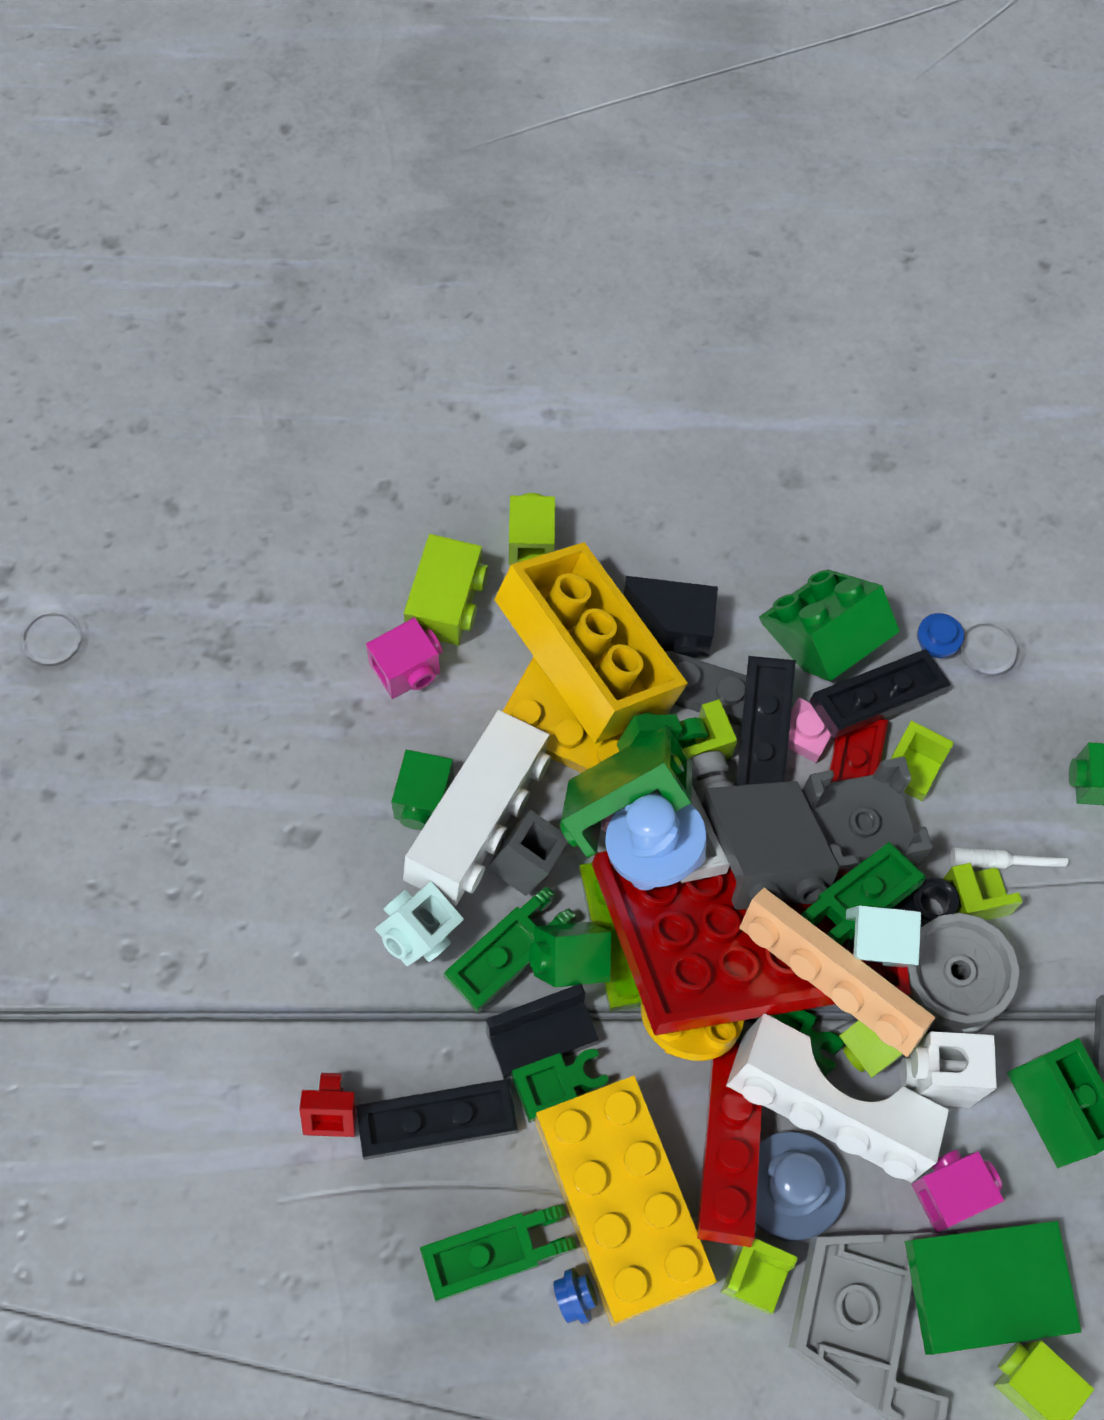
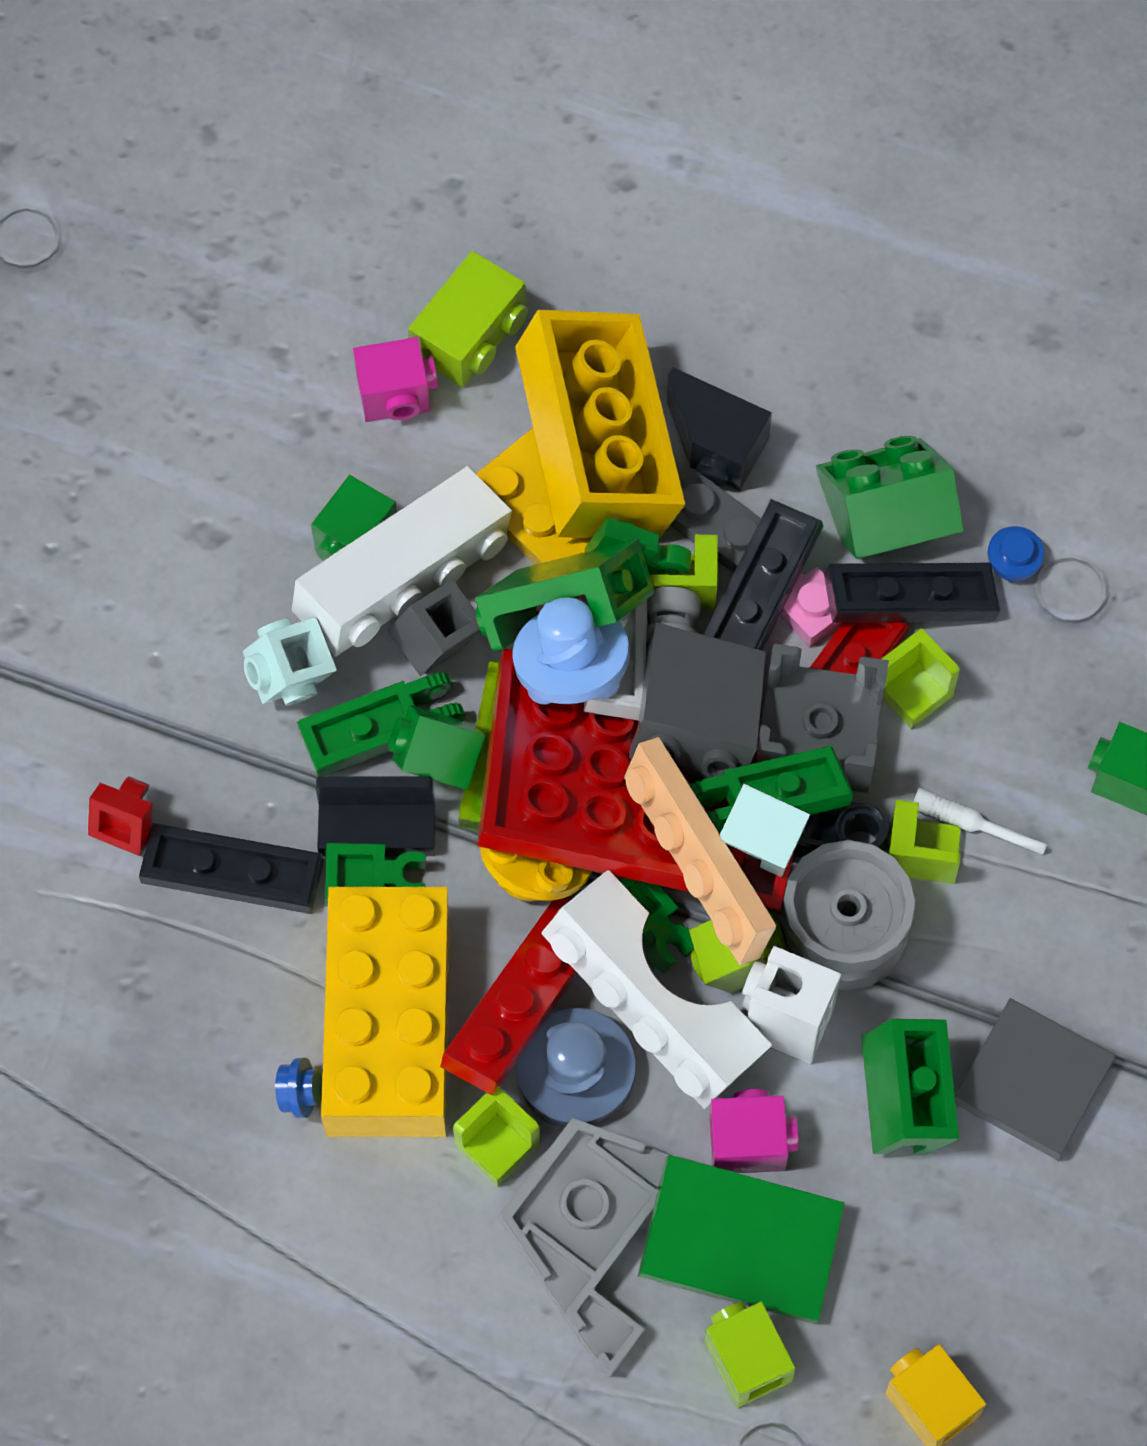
camera: 25 degrees right, 0 degrees up
(491, 1253) = (234, 1015): green hinge -> none
(531, 526) = (594, 278): lime brick -> none

